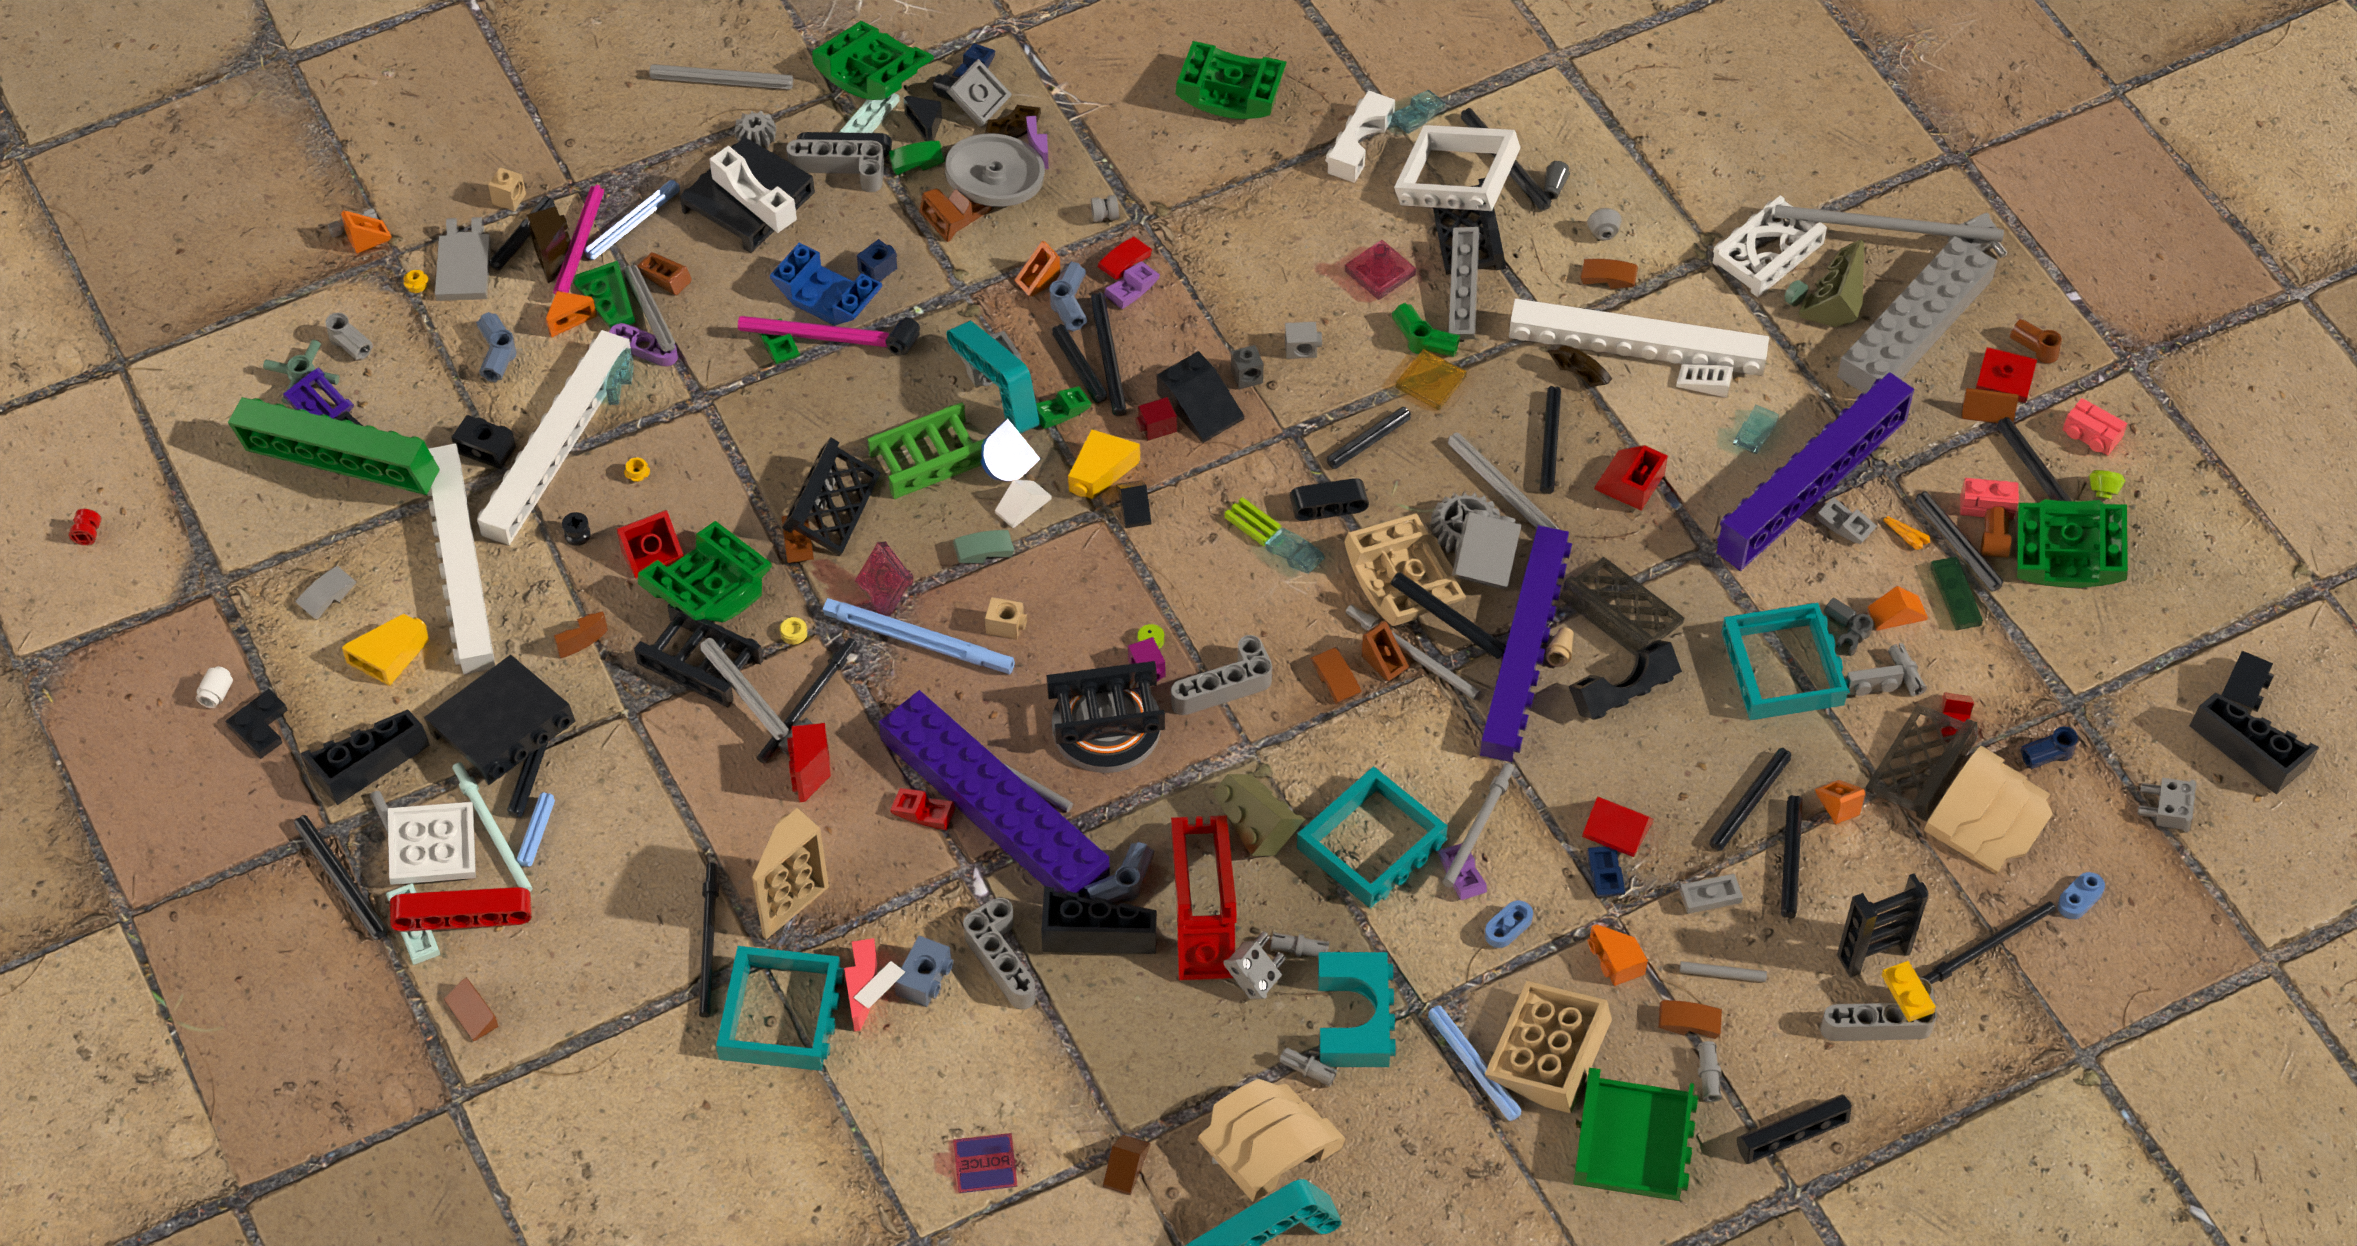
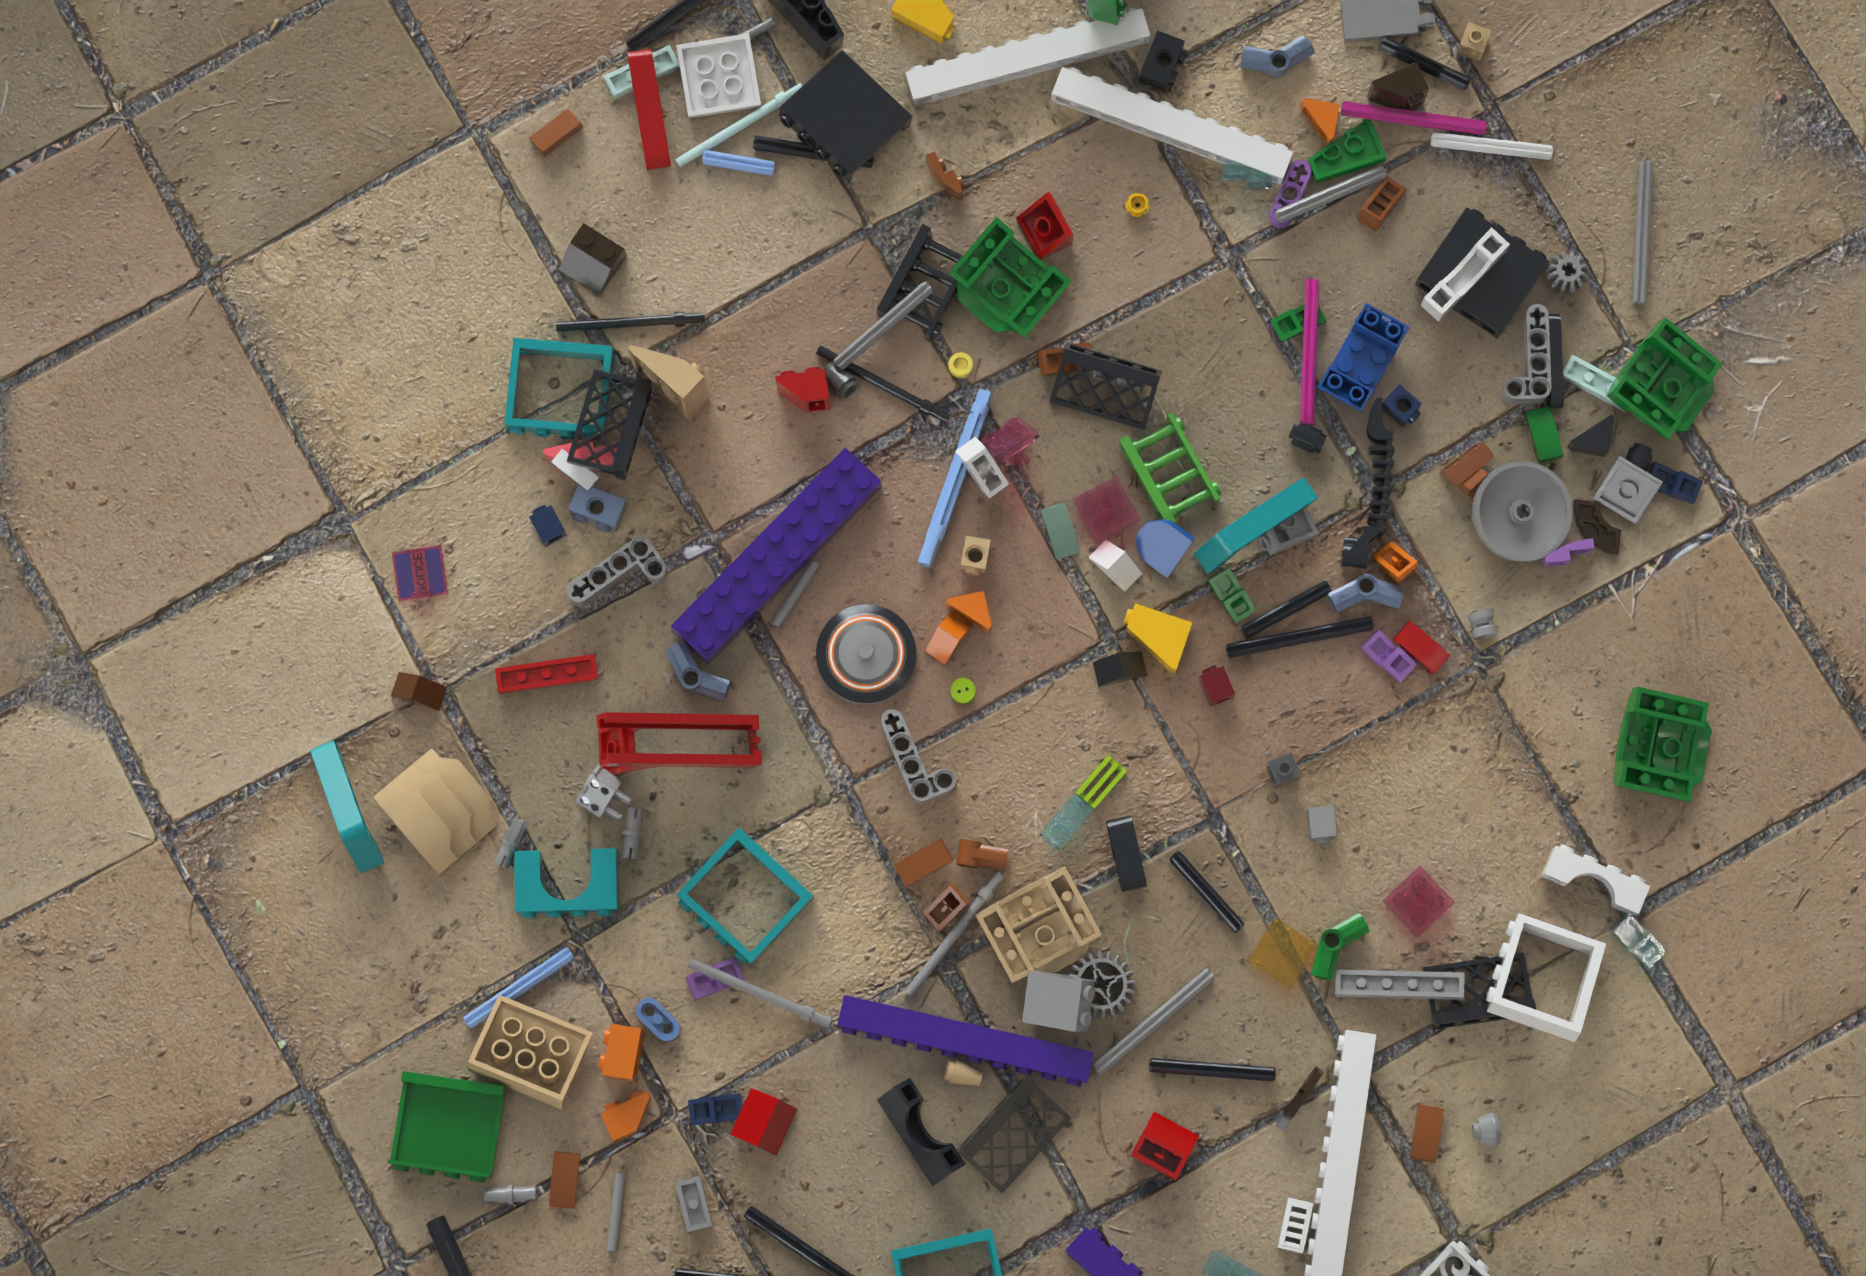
camera: 90 degrees right, 25 degrees up
(572, 534) = (1064, 162): black wheel -> none
(616, 184) = (1492, 146): none -> white axle
(630, 971) = (592, 259): none -> dark brown slope
(631, 220) = (1447, 166): axle -> none
(840, 921) = (631, 428): none -> black fence
(911, 600) = (982, 467): none -> white brick
(920, 809) = (769, 495): red slope -> none
(940, 1022) = (547, 525): none -> dark blue brick
(964, 505) = (1106, 509): none -> clear pink plate
(1022, 301) = (1356, 550): none -> black piece
(1065, 620) = (973, 608): none -> orange slope
(1093, 646) = (948, 637): none -> orange slope
(1095, 925) = (643, 646): black wedge -> none
(1102, 680) = (894, 658): black fence -> none
(1113, 1027) = (546, 674): none -> red plate
(1145, 652) = (930, 687): magenta brick -> none
(1199, 396) = (1244, 727): black slope -> none
(1256, 814) = (760, 788): olive wedge -> none
(1329, 626) = (975, 855): none -> dark orange piece
(1448, 615) = (984, 965): black axle -> none
(1517, 172) = (1590, 1022): black axle -> none
(1549, 948) = (622, 1052): none -> orange brick
(1556, 177) = (1549, 1081): dark grey cone -> none

